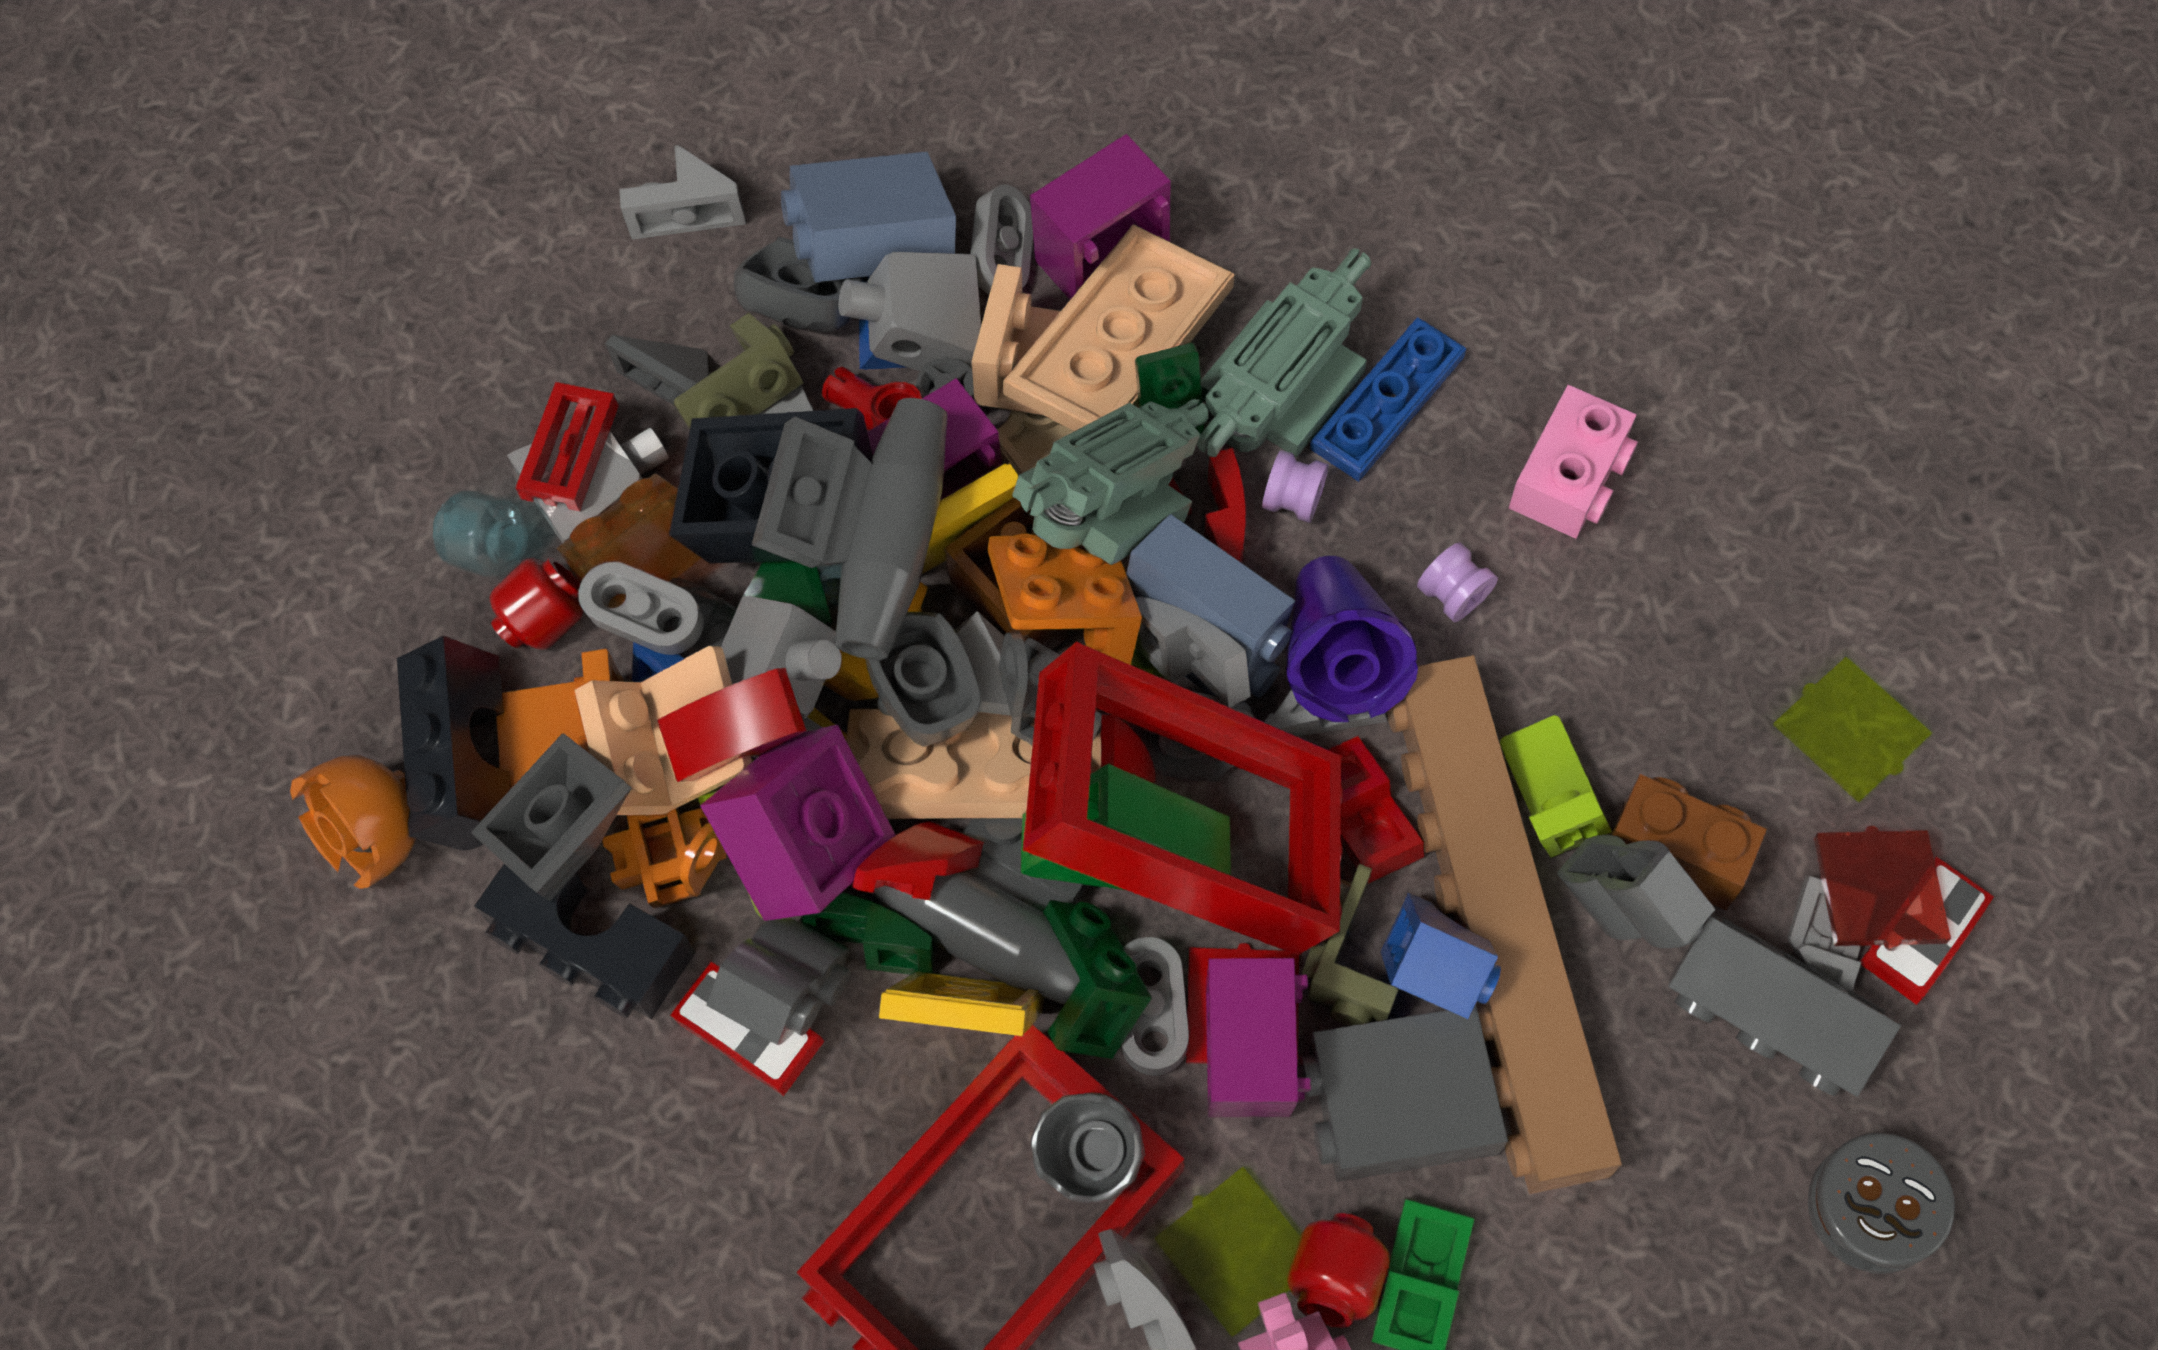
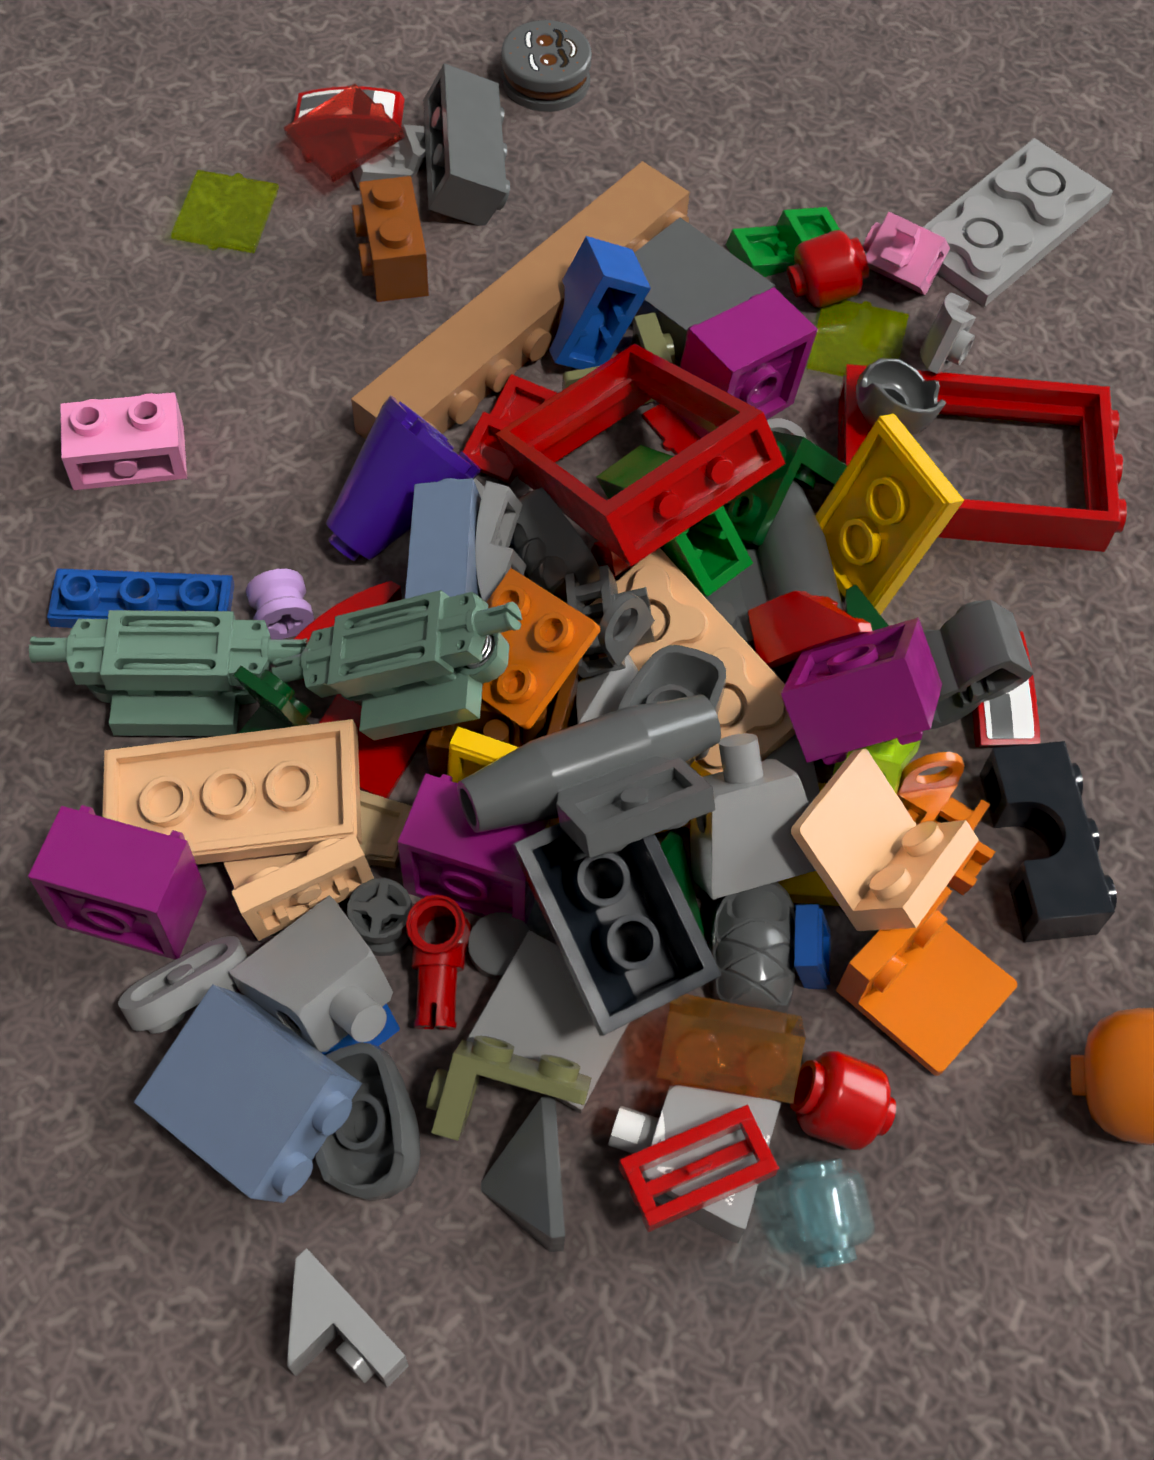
camera: 135 degrees left, 5 degrees down
(441, 696) = (991, 1089): black arch -> none
(554, 816) = (1020, 863): dark grey slope -> none
(646, 608) = (795, 965): light grey plate -> none
(731, 724) = (838, 764): red slope -> none
(1457, 582) = (286, 458): lavender wheel -> none
(1554, 786) = (427, 302): lime bracket -> none
(1636, 891) = (458, 211): dark grey brick -> none

